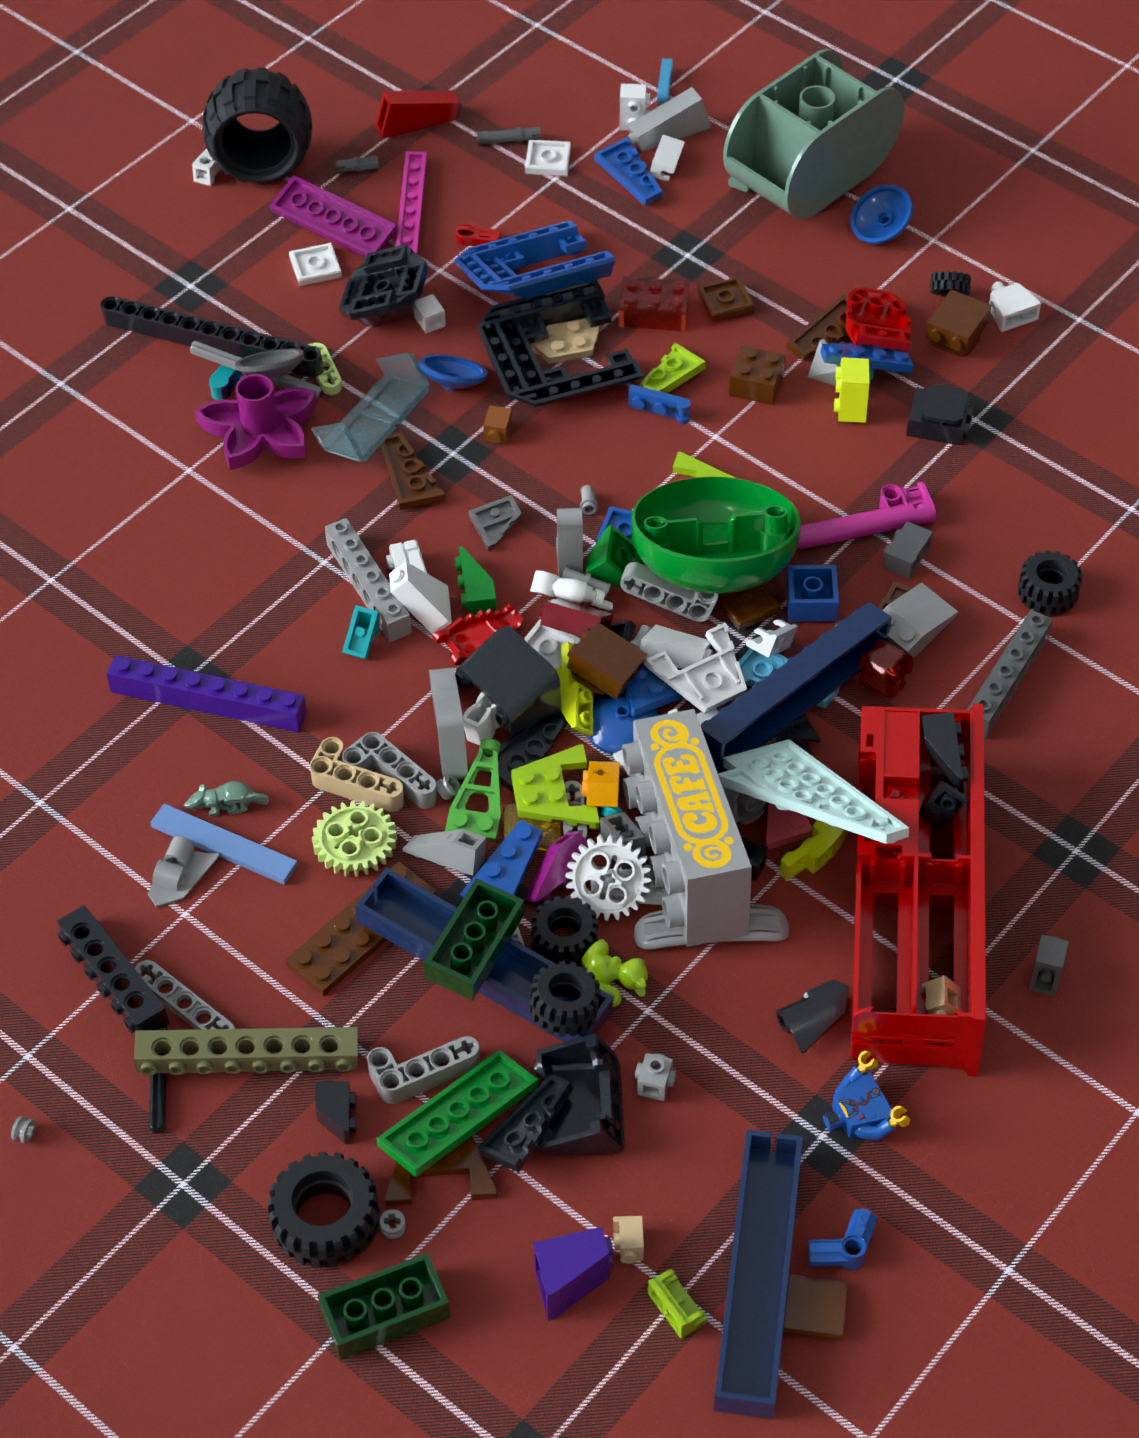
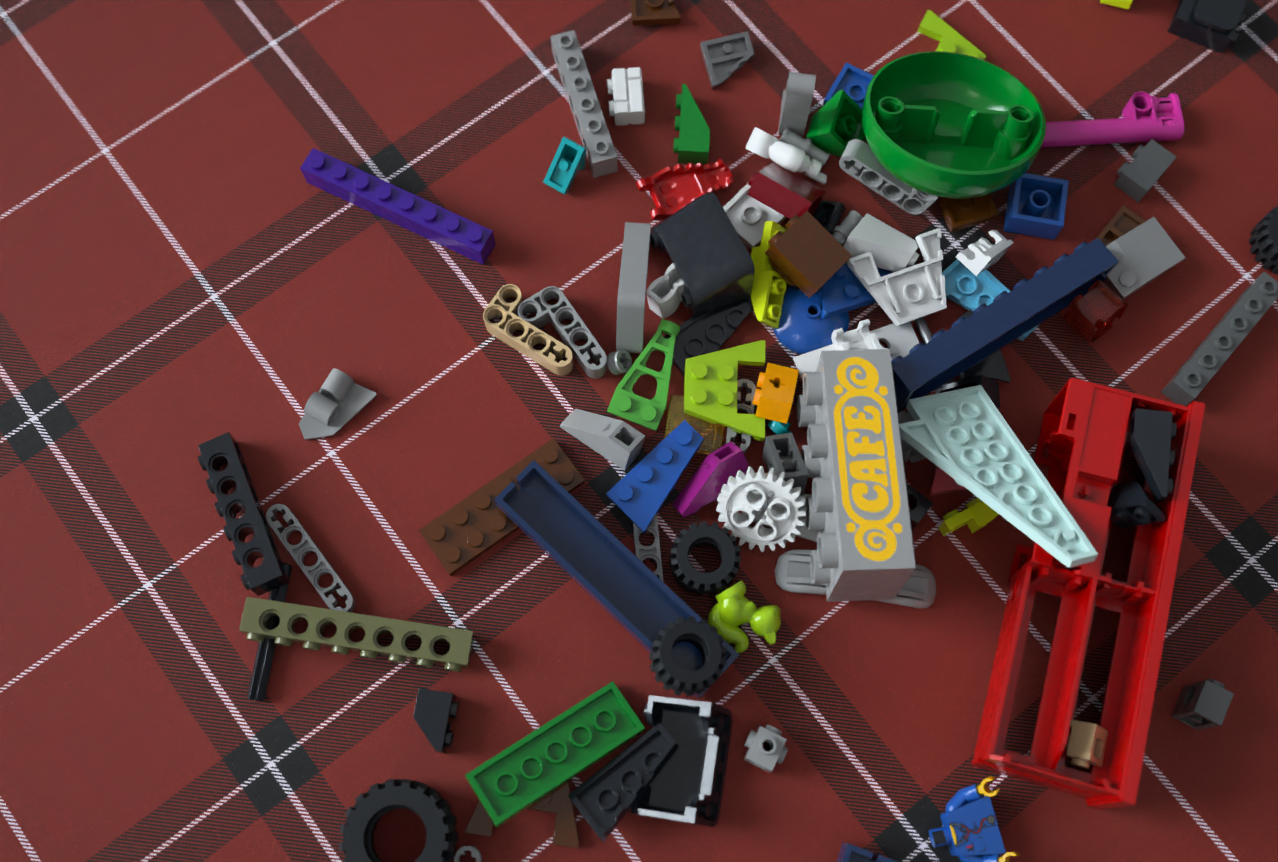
camera: 10 degrees right, 20 degrees up
(23, 1129) = (123, 674): light grey bush -> none
(225, 843) = (384, 382): medium blue tile -> none
(231, 796) = (400, 328): sand green animal -> none
(354, 838) = (504, 382): yellowish green gear -> none
(422, 596) = (634, 136): white slope -> none
(466, 1056) = (536, 684): light grey beam -> none
(474, 939) = (606, 569): dark green brick -> none
(589, 503) = (825, 50): light grey pin -> none
(814, 1013) = (943, 706): black panel -> none

